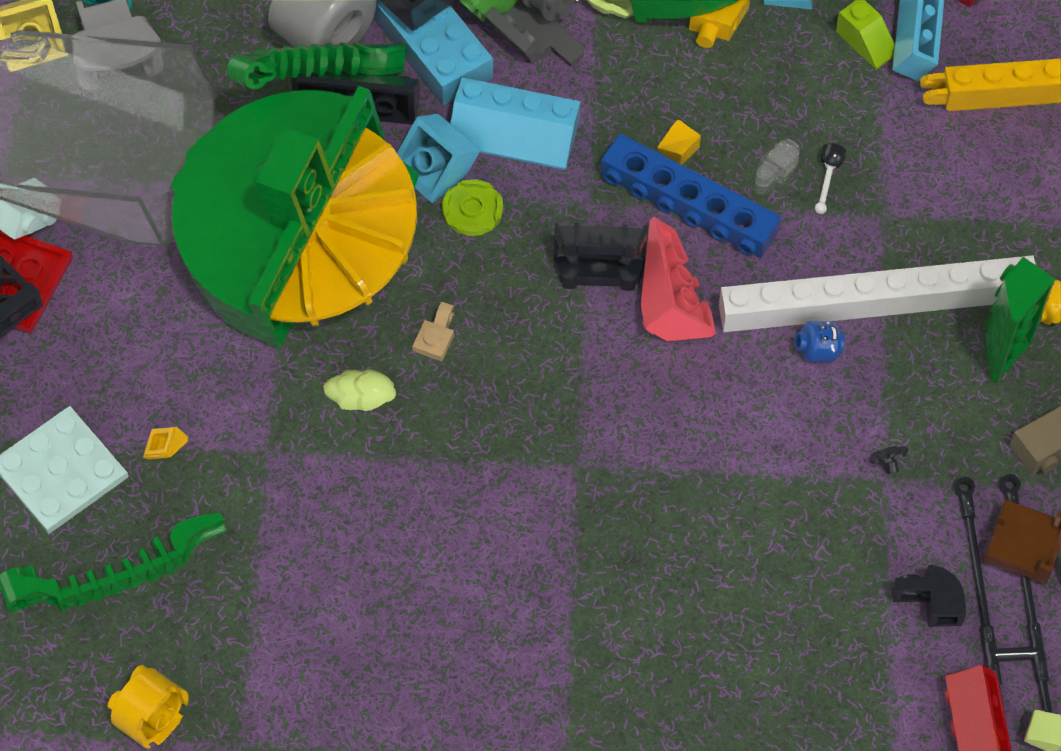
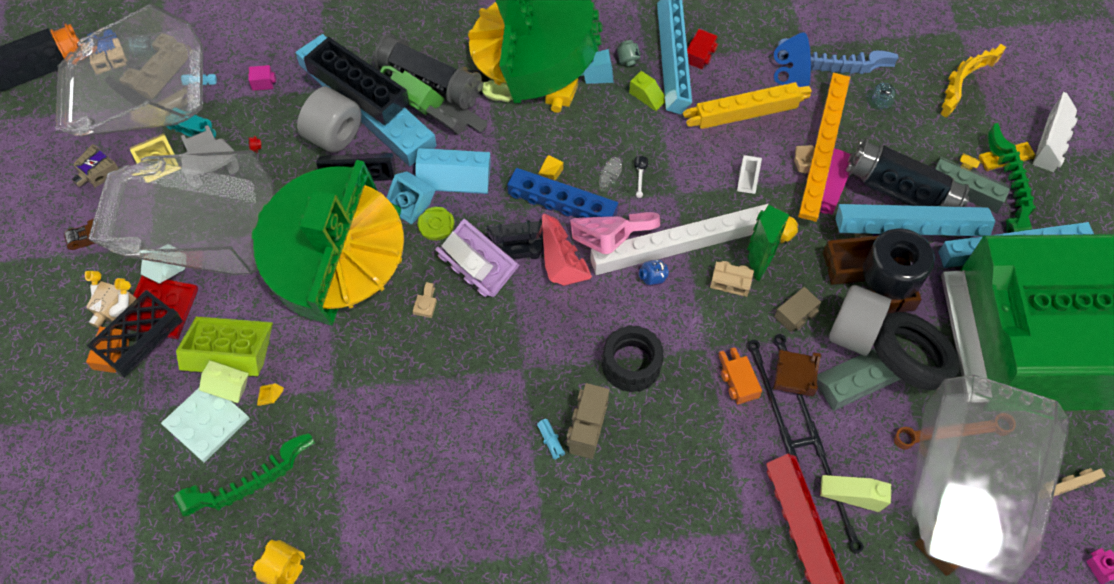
camera: 10 degrees left, 0 degrees up
(96, 411) = (223, 381): none -> yellowish green brick
(104, 356) = (226, 342): none -> lime slope
(192, 31) = (254, 144): none -> red plate
(265, 65) = (330, 149): green piece -> none
(360, 389) = (384, 342): yellowish green arm -> none
(515, 270) = (467, 256): none -> white slope
(531, 276) = (503, 264): none -> lavender bracket
(603, 583) = (550, 438): none -> medium azure axle
(667, 563) = (587, 420): none -> dark tan piece
(750, 510) = (632, 337): none -> black tyre
(755, 264) = (608, 233): none -> bright pink piece
(889, 457) = (706, 334): black plant -> none
(930, 532) = (740, 377): none -> orange hinge
(939, 590) = (753, 412): black brick -> none
(949, 371) = (732, 278): none -> tan brick
(1013, 201) = (749, 174): none -> white slope

